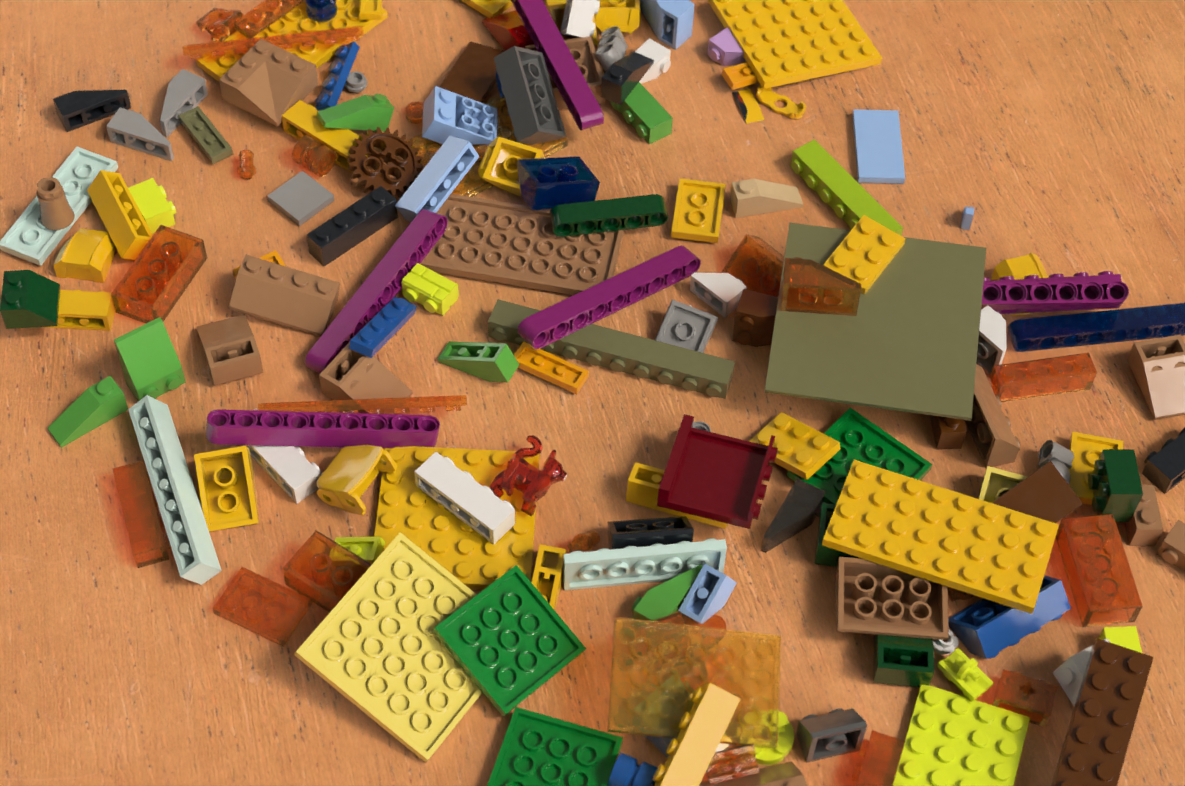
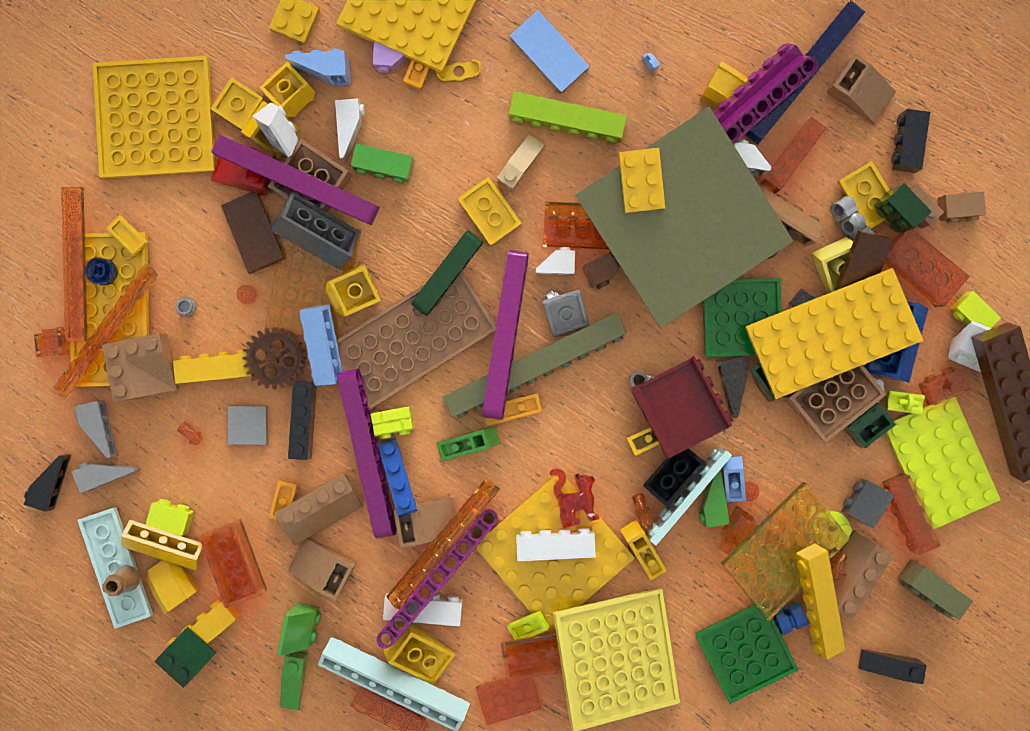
camera: 45 degrees left, 35 degrees up
(205, 135) = (141, 435): olive plate -> none
(314, 156) = (222, 391): clear orange wheel -> none
(337, 76) = (172, 317): blue plate -> none
(351, 475) = (481, 589): yellow piece -> none
(359, 113) = (220, 339): bright green slope -> none
(458, 116) = (285, 283): light blue slope -> none
(509, 640) = (660, 606): green plate -> none
(556, 182) = (392, 277): clear blue slope -> none
(611, 47) = (321, 133): light grey piece -> none
(624, 76) = (354, 150): black slope -> none
(748, 106) = (440, 91): yellow sticker -> none
(799, 445) = (696, 337): yellow plate -> none
(817, 289) = (634, 245): clear orange slope -> none

